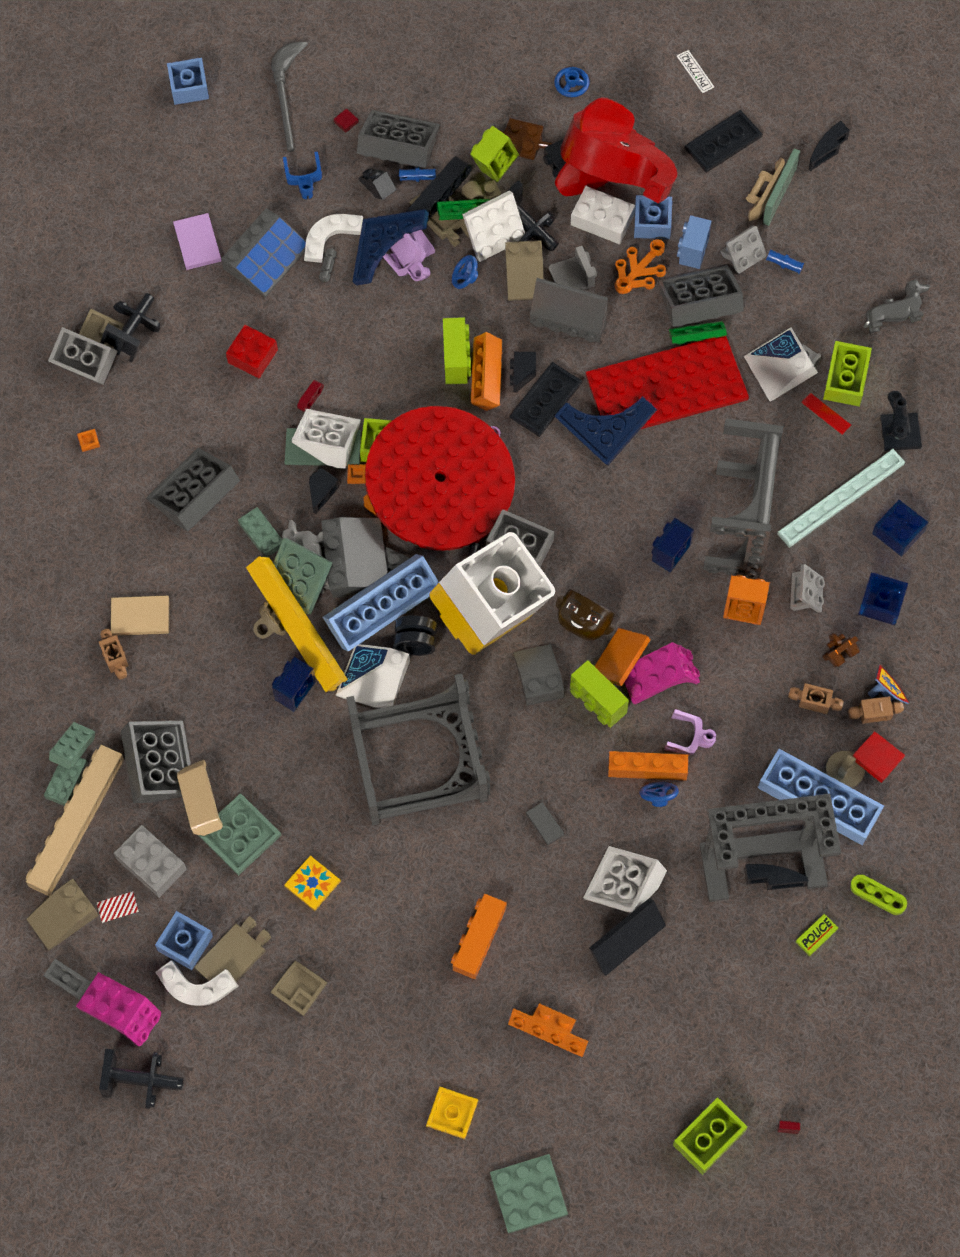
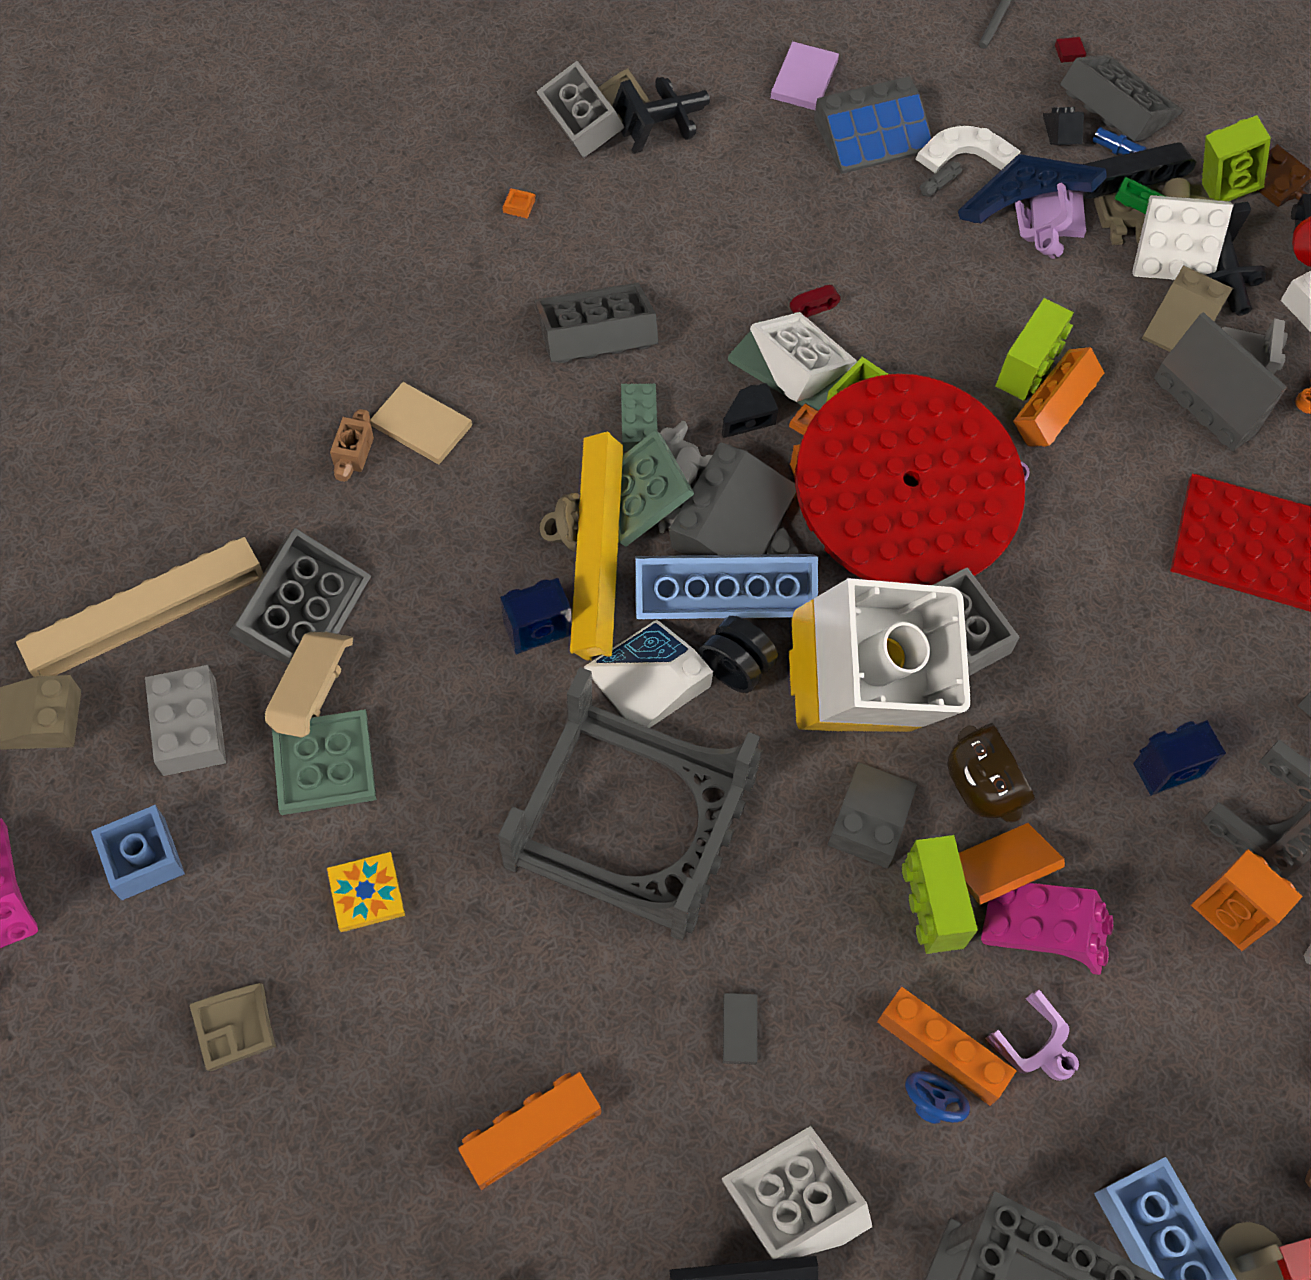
camera: 30 degrees right, 5 degrees down
(64, 781) = (174, 550): sand green piece -> none
(72, 745) = (211, 516): sand green piece -> none
(117, 907) = (104, 752): sticker -> none
(194, 994) = (96, 935): white plate -> none
(234, 952) = (187, 918): dark tan tile -> none
(251, 351) = (780, 214): red brick -> none
(304, 182) = (977, 80): blue piece -> none
(468, 272) = (1108, 274): blue piece -> none
(524, 369) = (1110, 422): black slope -> none
(545, 399) = (1116, 476): black tile -> none
(609, 433) = (1177, 563): dark blue plate -> none
(835, 704) = (1281, 1114): medium nougat piece -> none

